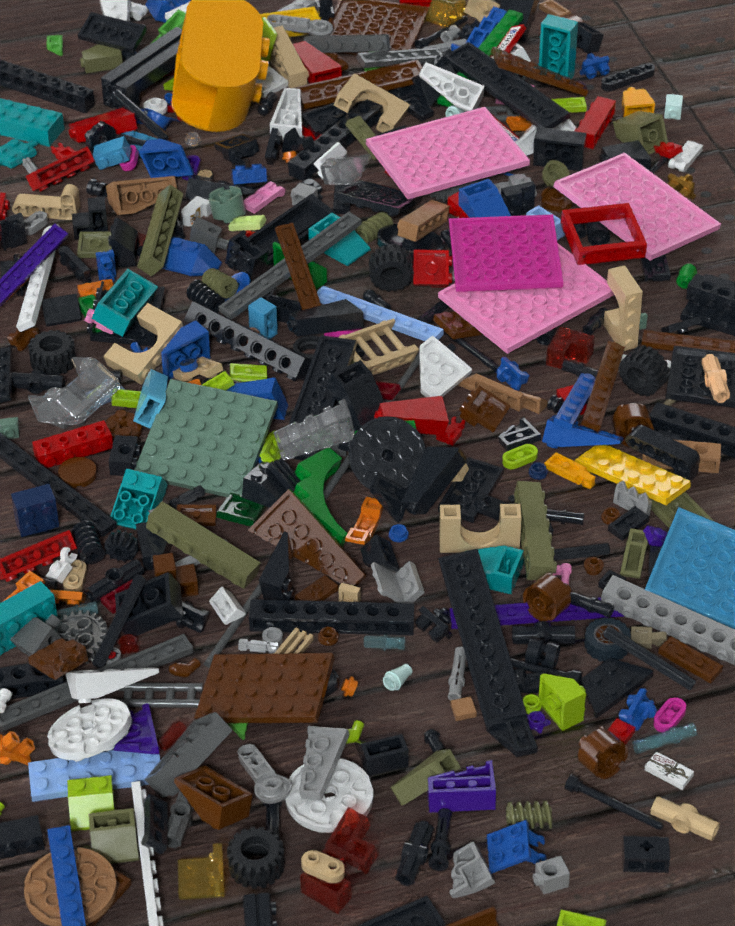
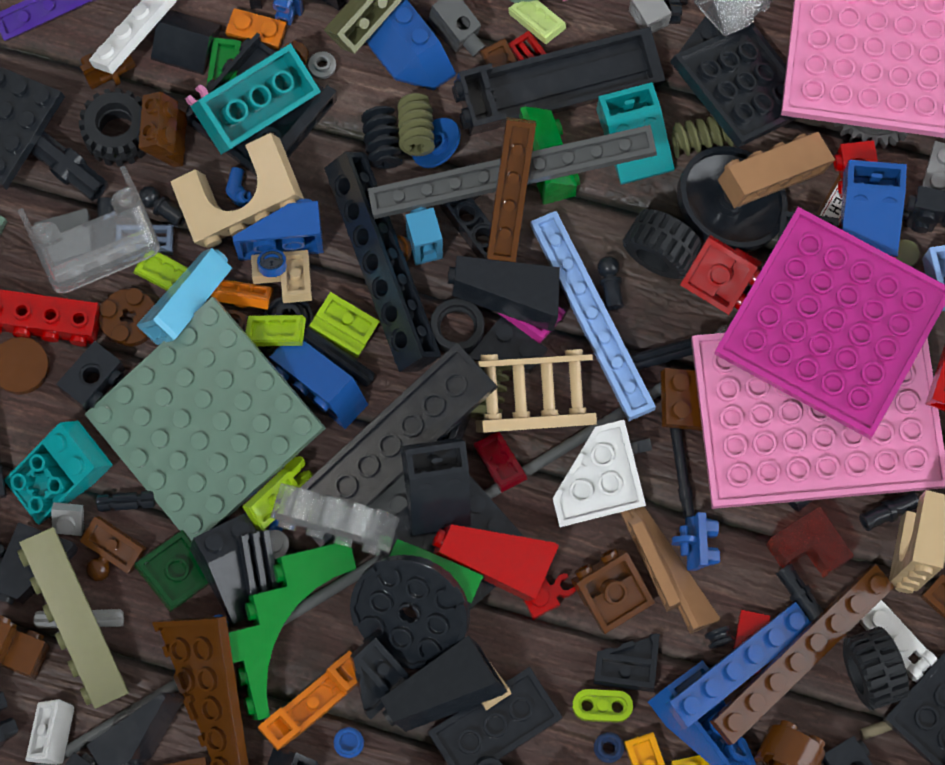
camera: 30 degrees right, 30 degrees up
(82, 337) = (163, 128): none -> reddish brown plate

